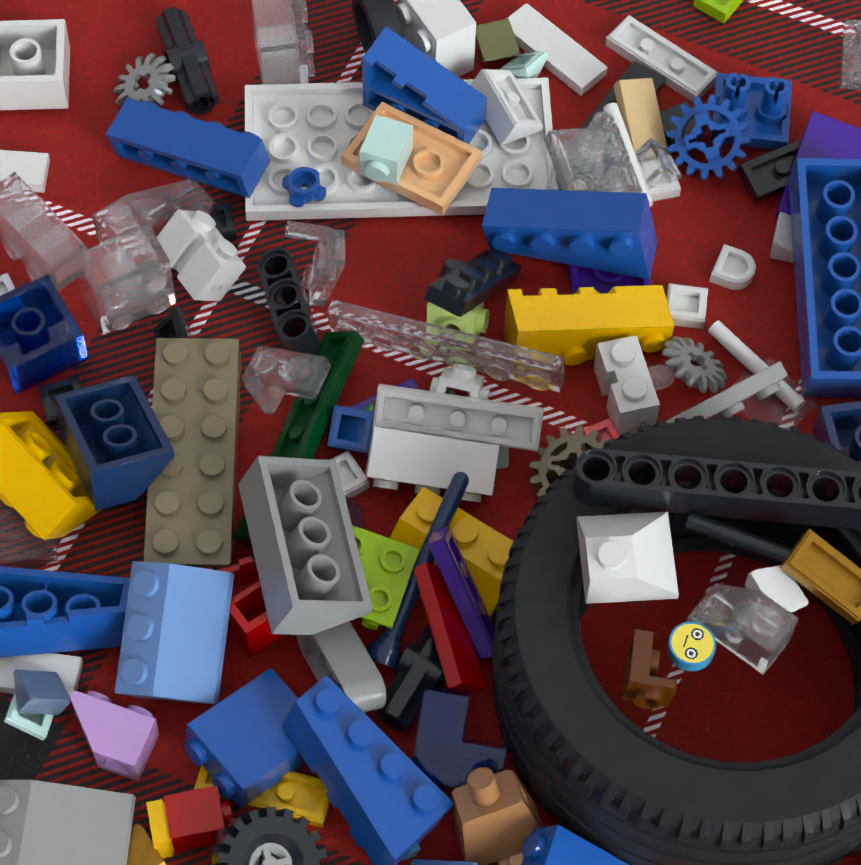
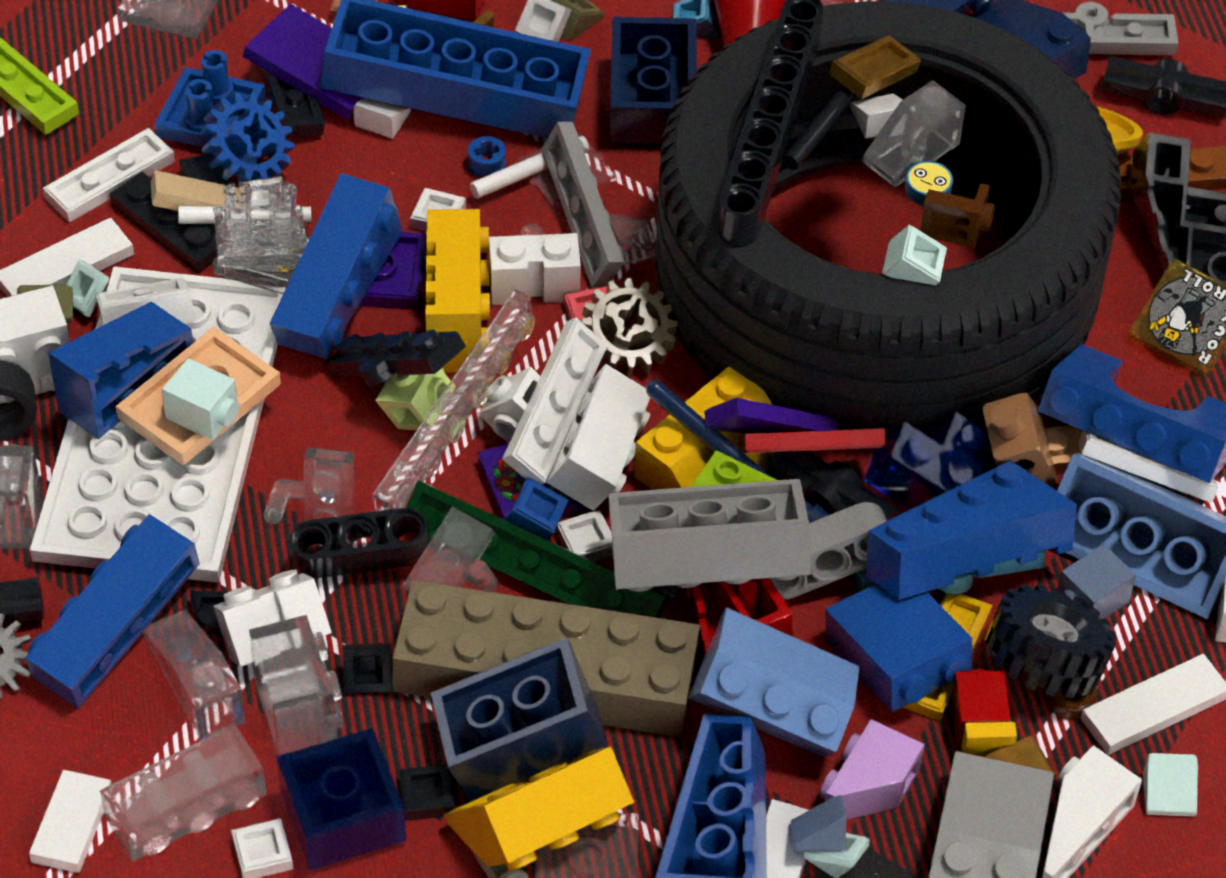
camera: 80 degrees left, 10 degrees down
(300, 178) = (202, 493): blue plate -> none
(588, 644) = (914, 257): none -> light aqua slope
(627, 557) = (824, 216): white slope -> none
(708, 374) = (518, 212): light grey gear -> none
(733, 268) = (400, 166): white tile -> none
(757, 341) = (486, 147): none -> blue bush

